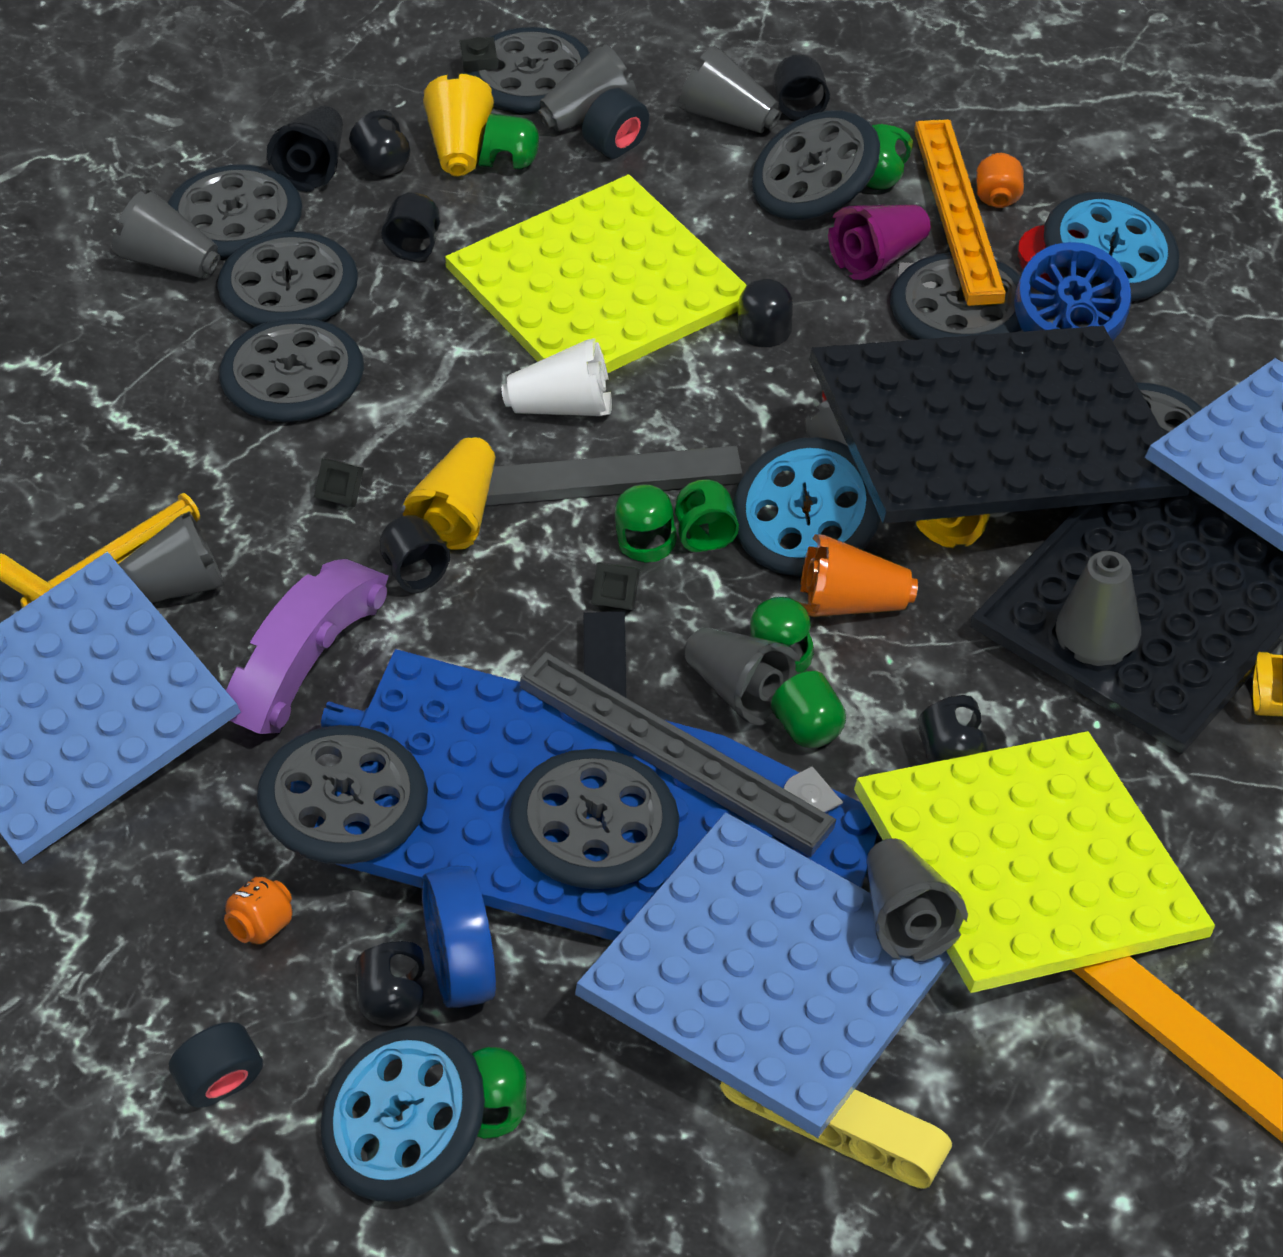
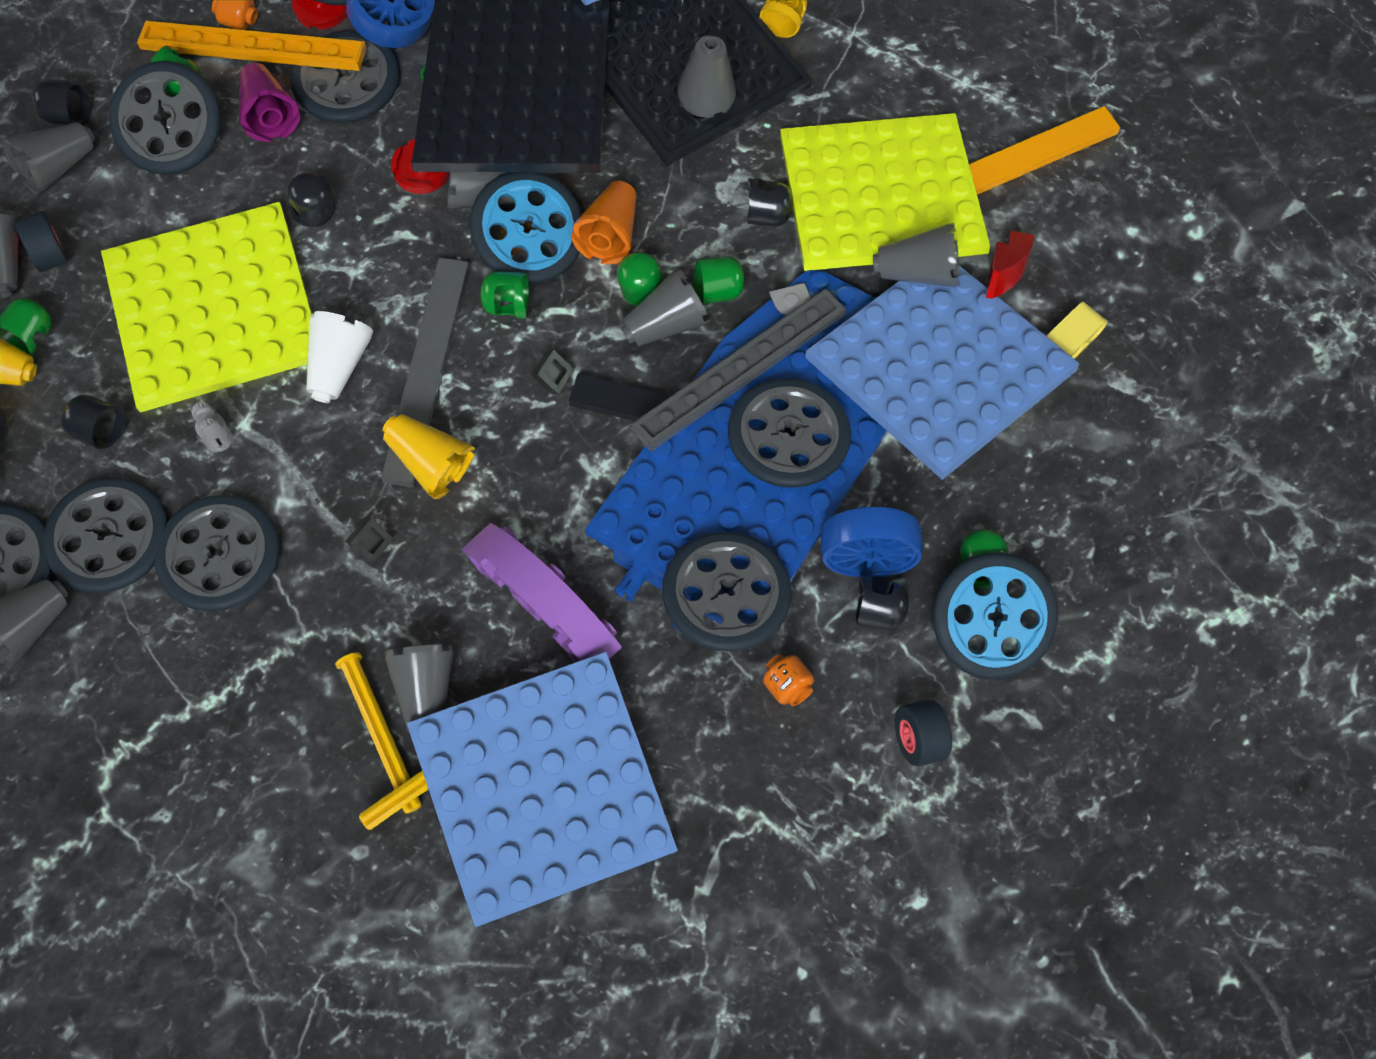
camera: 75 degrees left, 20 degrees up
(409, 541) = (468, 498): black helmet -> none
(433, 314) = (210, 427): none -> light grey hinge
(643, 510) = (494, 333): green helmet -> none
(961, 1019) = (1008, 263): none -> red slope

